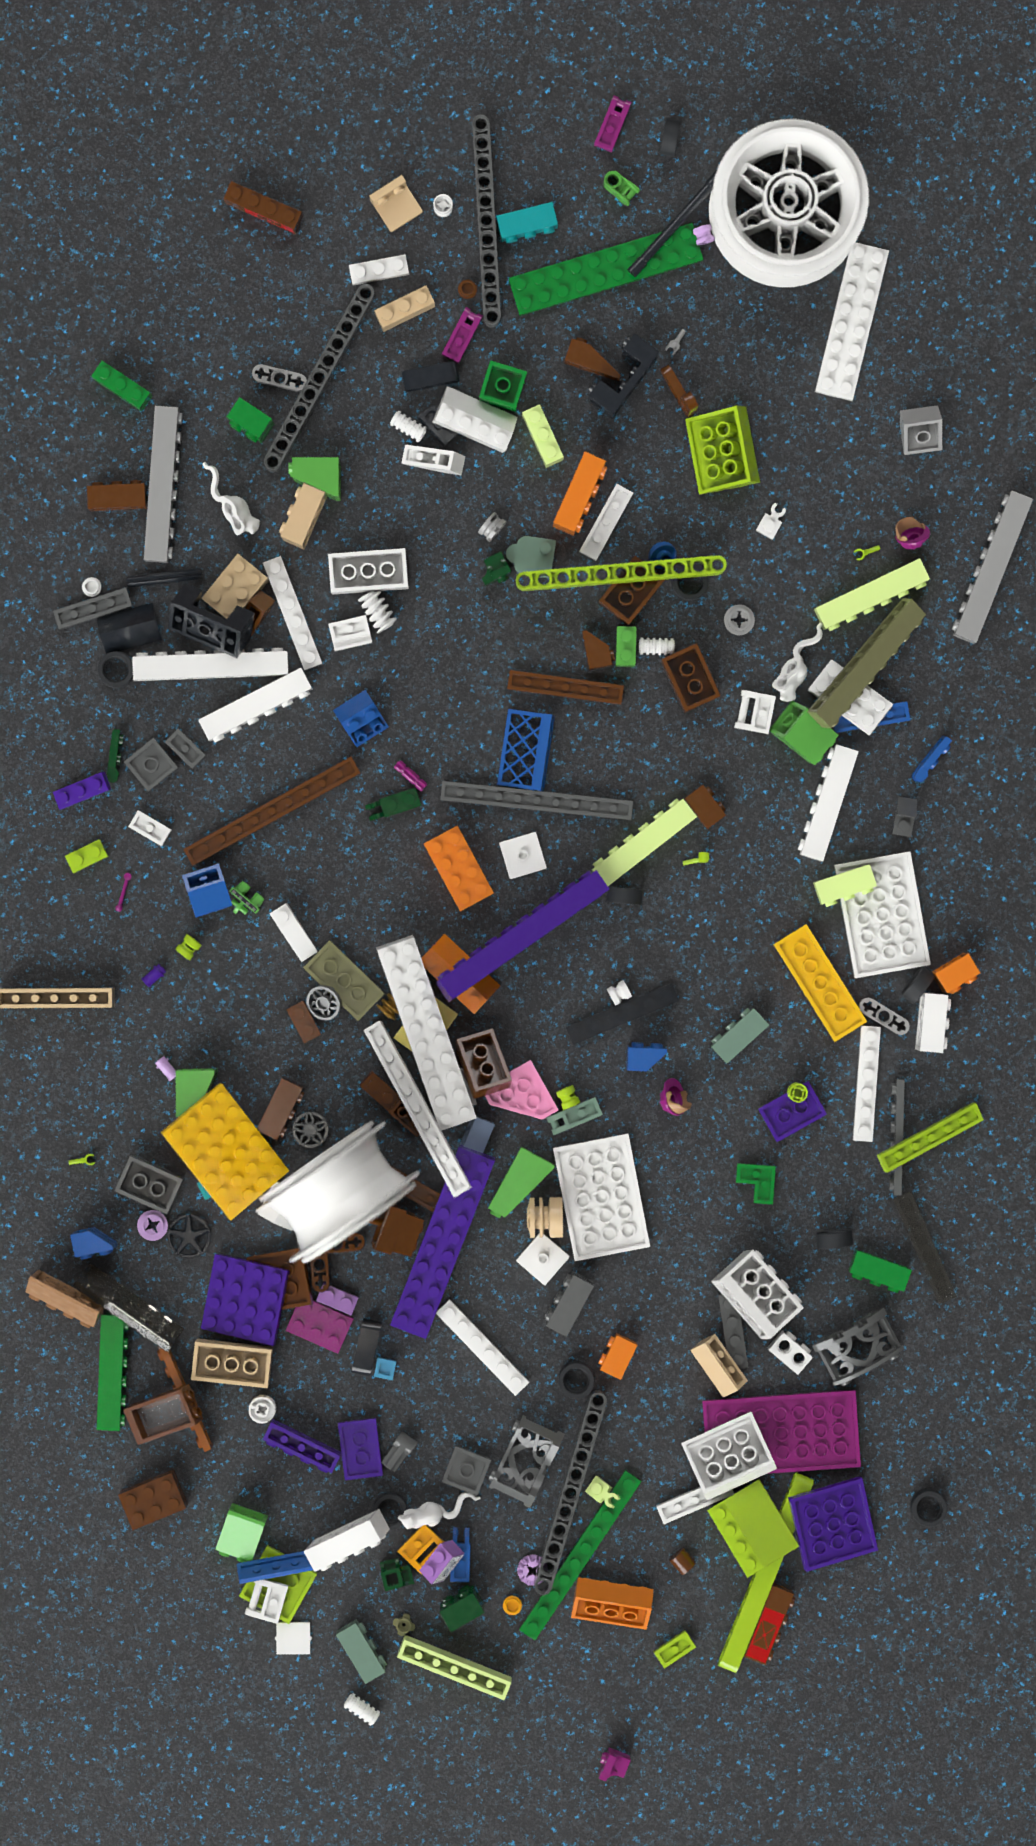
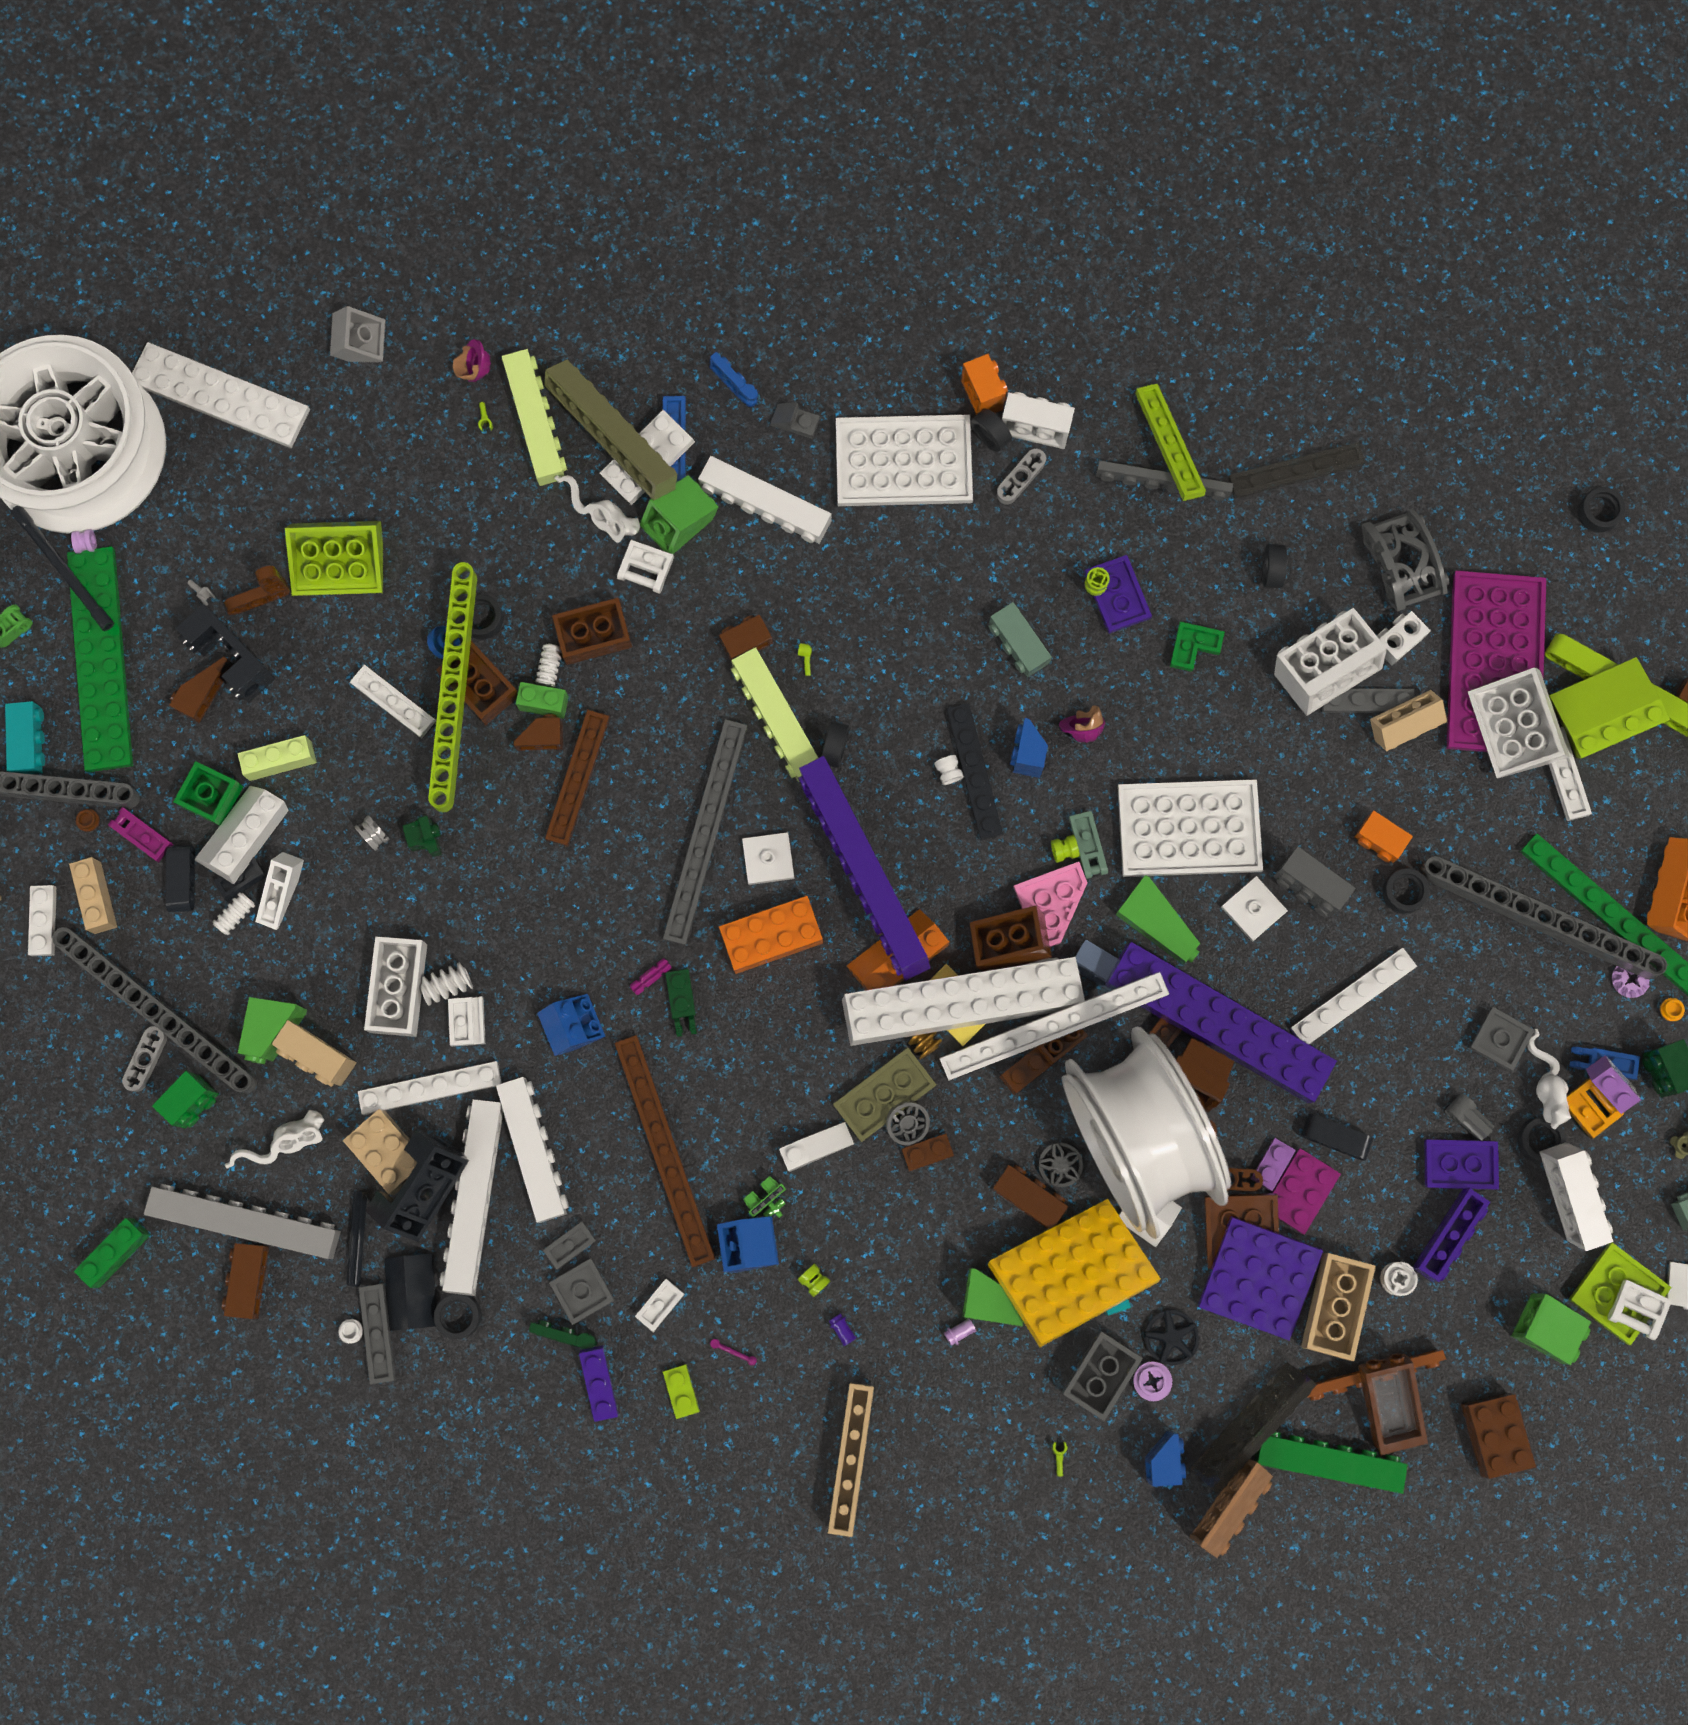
camera: 80 degrees left, 10 degrees down
(260, 605) = (411, 1120): reddish brown slope -> none
(273, 1567) = (1600, 1294): blue plate -> none
(385, 1368) = (1365, 1118): dark azure plate -> none
(394, 1575) = (1623, 1145): dark green brick -> none
(532, 554) = (412, 793): sand green plate -> none
(532, 1486) = (1530, 961): dark grey fence -> none
(542, 752) = (650, 816): blue fence -> none
(546, 1217) = (1206, 892): tan wheel -> none
(578, 495) = (352, 724): orange brick -> none
(601, 1491) = (1543, 882): yellowish green plate -> none
(682, 1561) = (1638, 799): reddish brown brick -> none
(745, 613) = (529, 561): light grey gear -> none
(770, 524) = (431, 518): white plate -> none
(820, 983) = (972, 540): yellow plate -> none
(833, 1523) = (1611, 617): dark purple plate -> none
(845, 885) = (863, 492): yellowish green brick -> none
(866, 1083) = (1097, 507): white plate -> none
(879, 1271) = (1318, 523): green brick -> none
(992, 567) = (527, 282): light grey brick -> none

